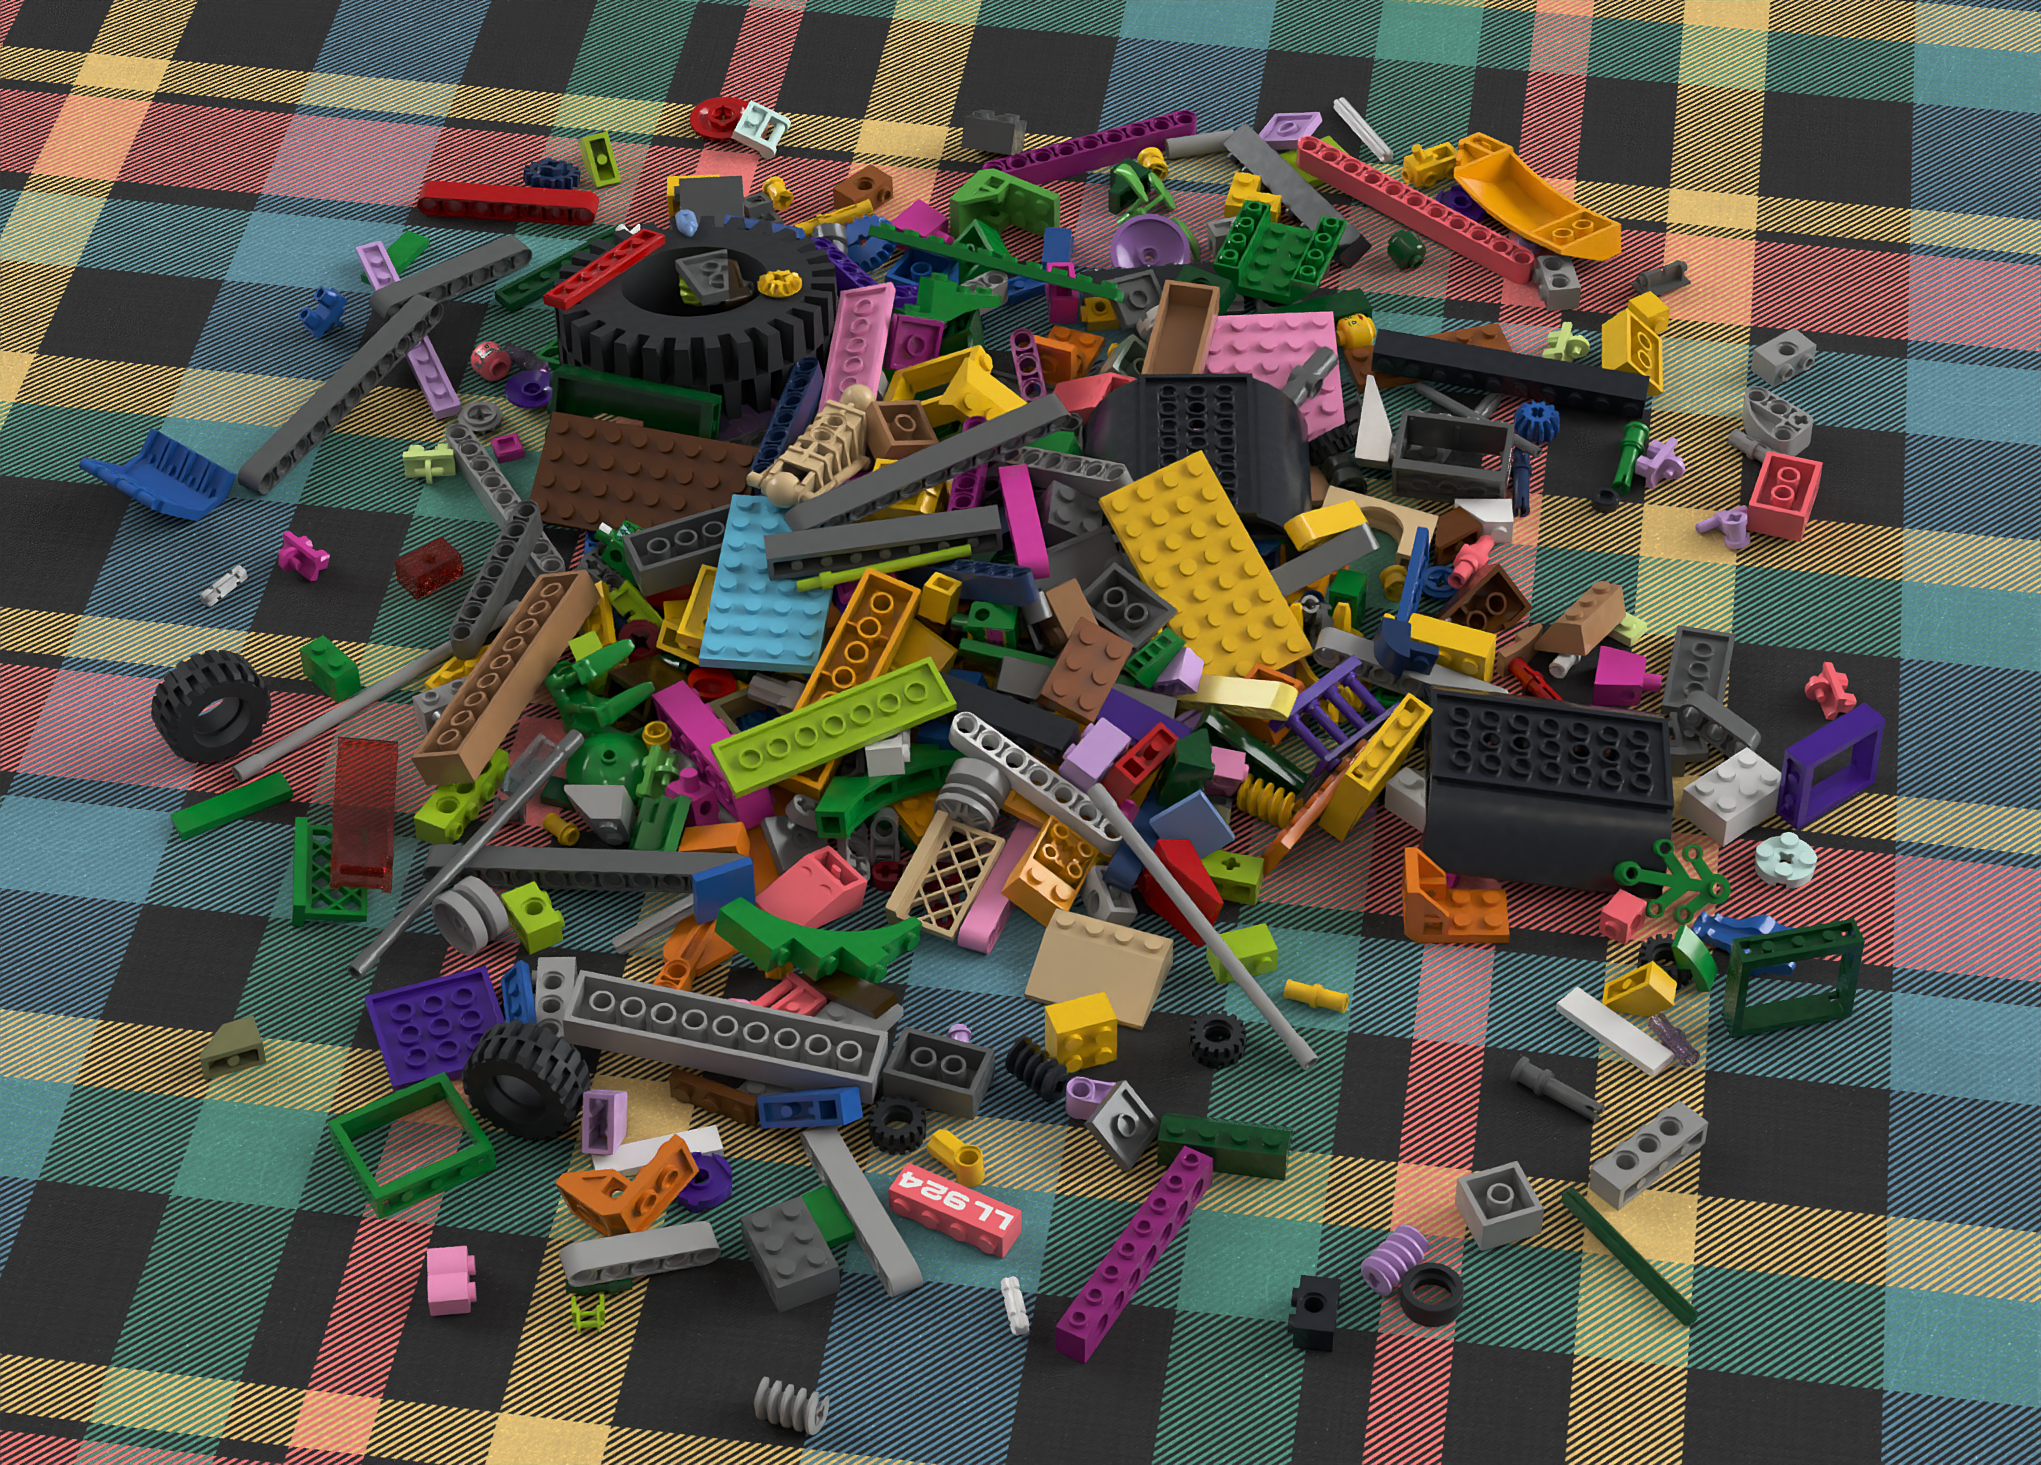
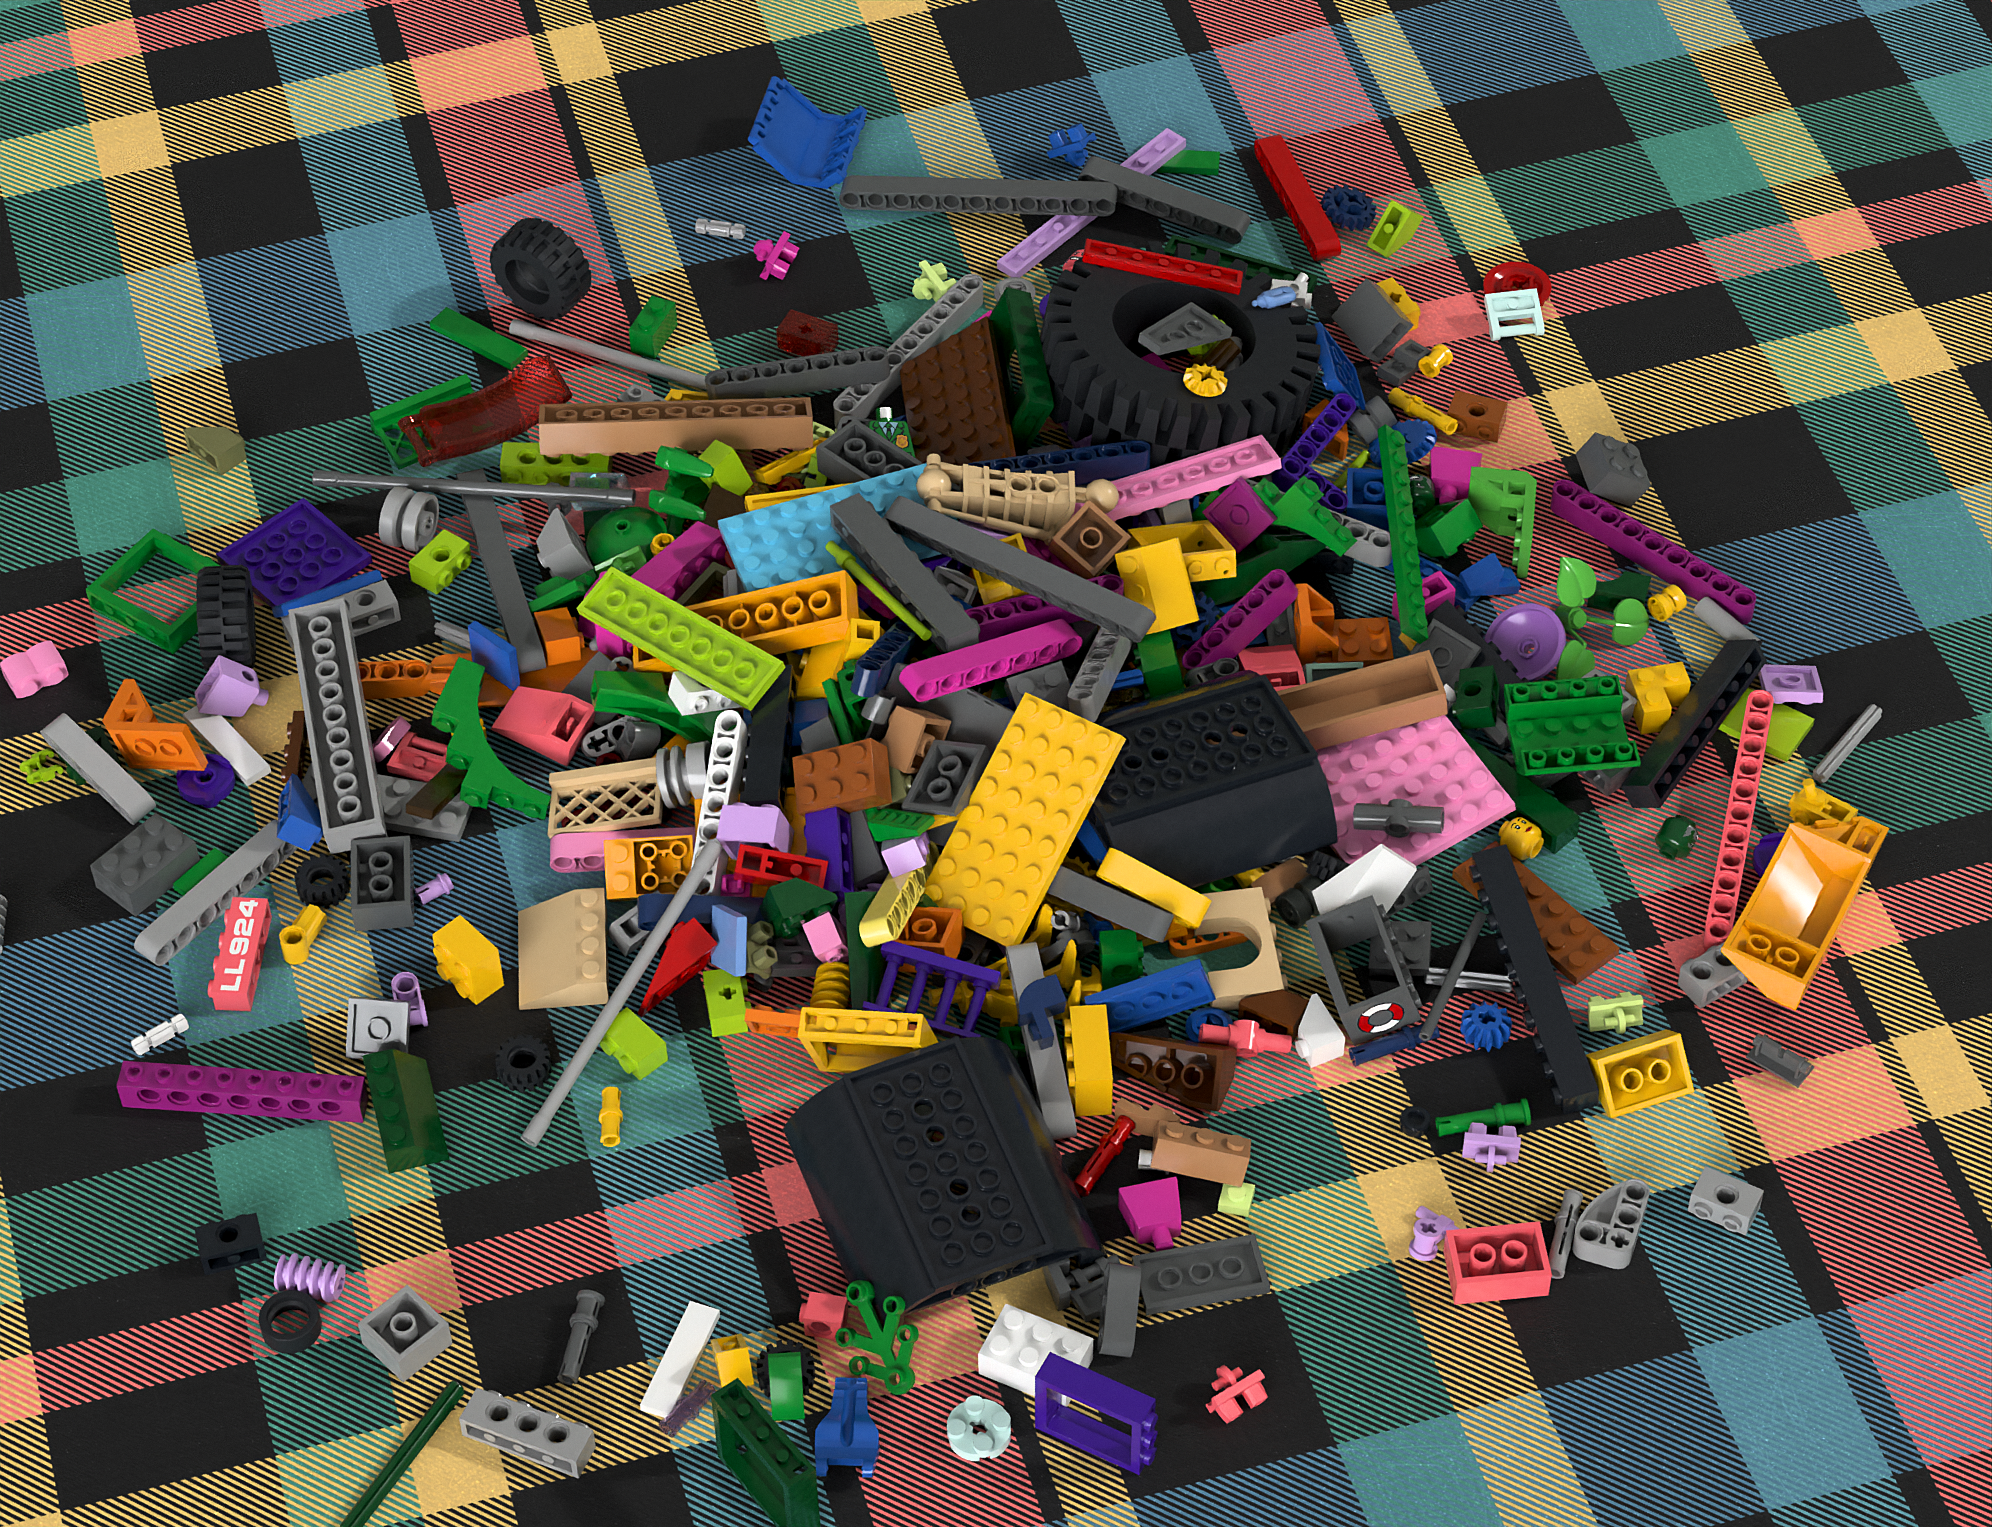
camera: 65 degrees right, 5 degrees up
(1038, 1070) = (417, 952): black piece -> none
(1445, 914) = (763, 1170): orange bracket -> none
(1650, 311) = (1714, 1064): yellow brick -> none

